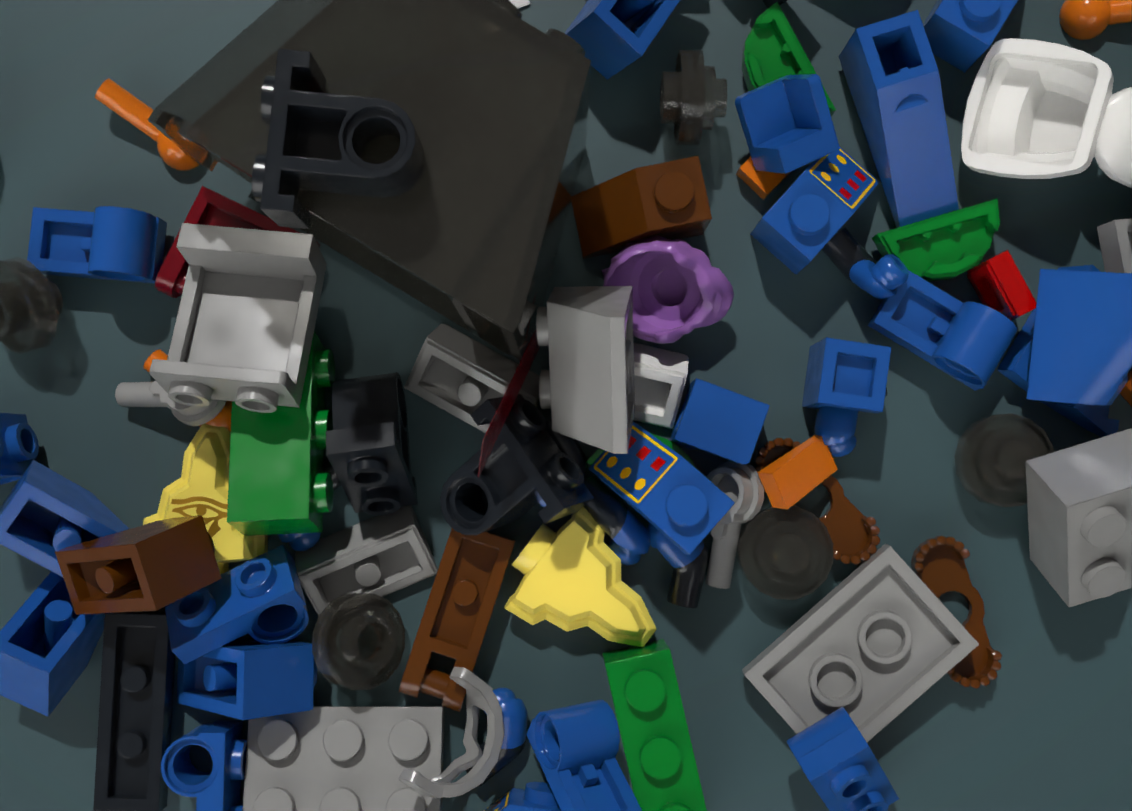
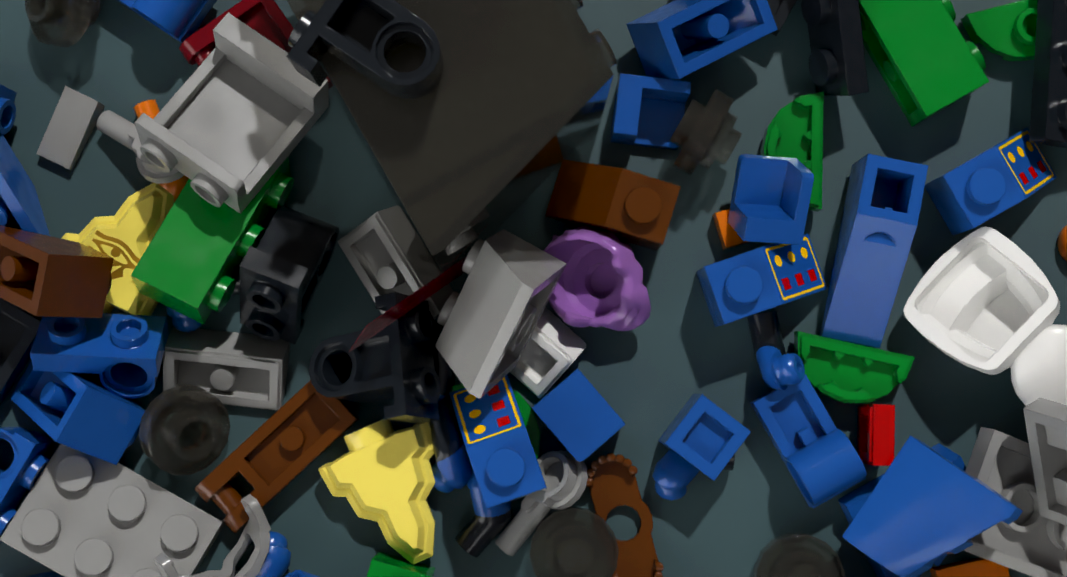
camera: 25 degrees right, 0 degrees up
(94, 419) = (70, 128): none -> light grey piece
(626, 107) = (648, 110): none -> blue panel
(797, 472) = (620, 492): orange piece -> none

